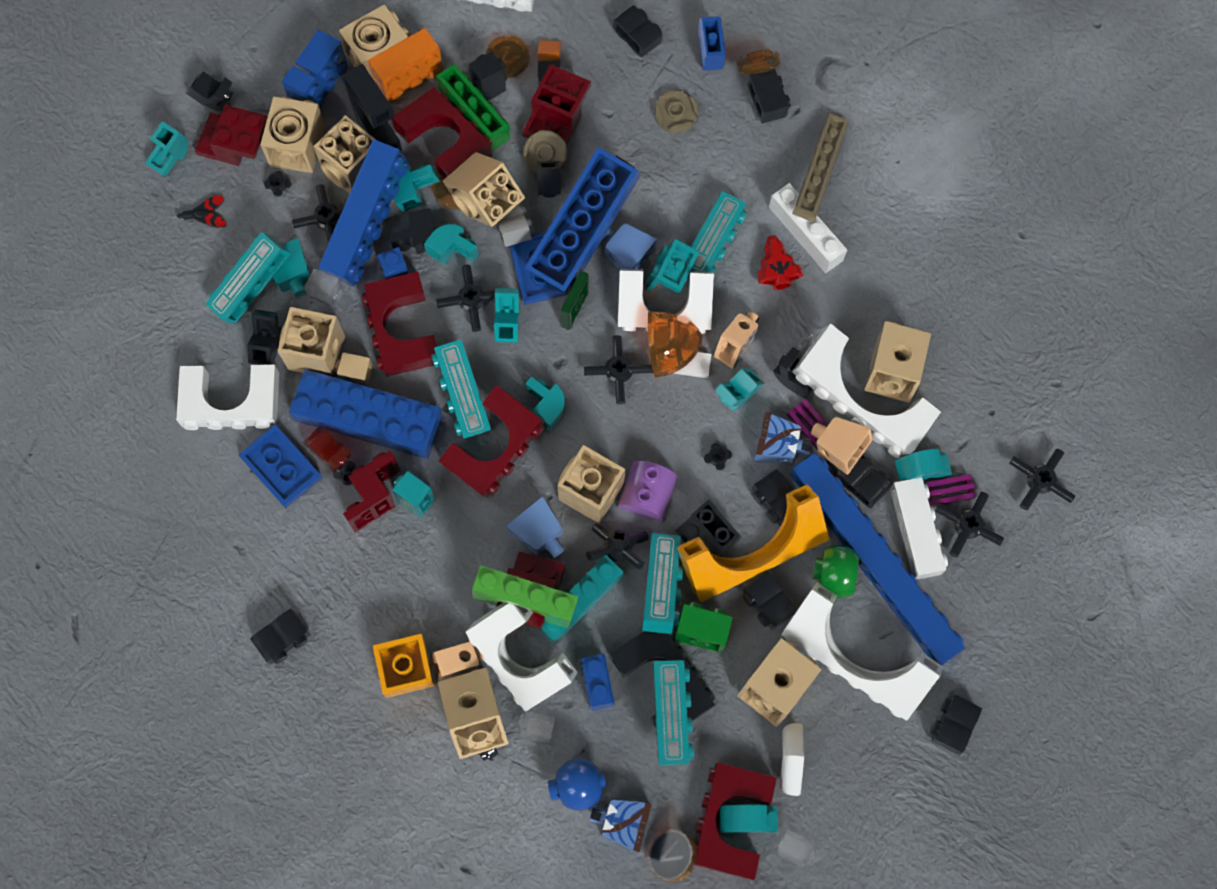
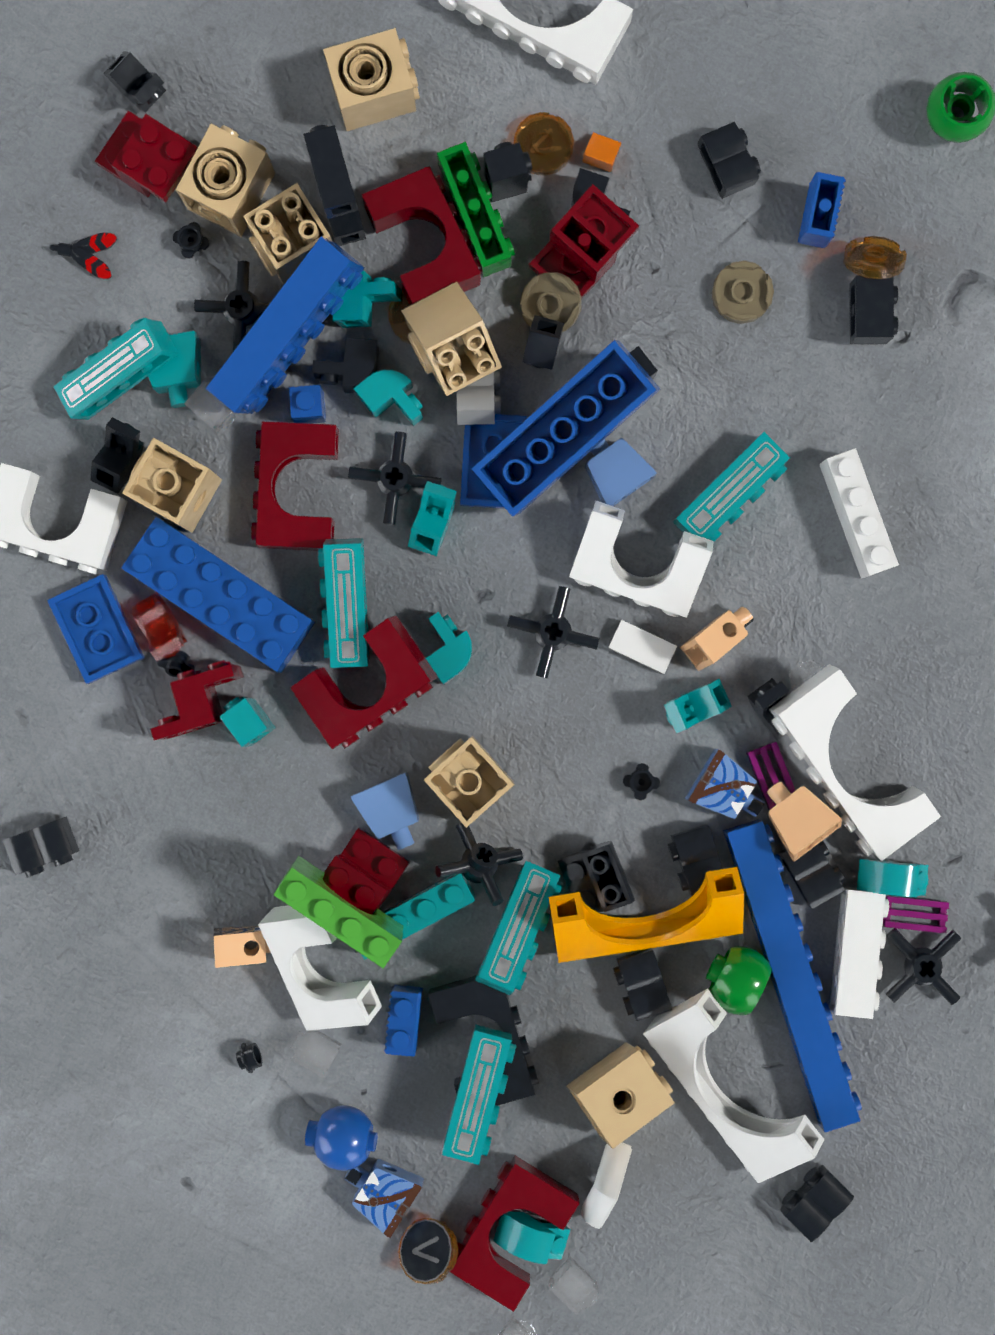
camera: 20 degrees right, 15 degrees up
(169, 148) = (60, 149): teal brick -> none
(324, 61) = (291, 88): blue piece -> none
(354, 369) = (220, 530): tan brick -> none
(403, 665) = (177, 930): light orange brick -> none
(406, 65) = (402, 122): orange piece -> none
(472, 713) = (240, 1018): tan brick -> none
(575, 300) = (525, 525): dark green tile -> none
(648, 490) = (539, 800): medium lavender brick -> none
(671, 343) = (629, 622): clear orange brick -> none
(672, 266) = (663, 520): teal bracket -> none
(703, 627) = (551, 999): green brick -> none
(778, 266) = (802, 553): red rock -> none
(820, 167) = (905, 436): dark tan tile -> none
(897, 361) = (910, 735): tan brick -> none

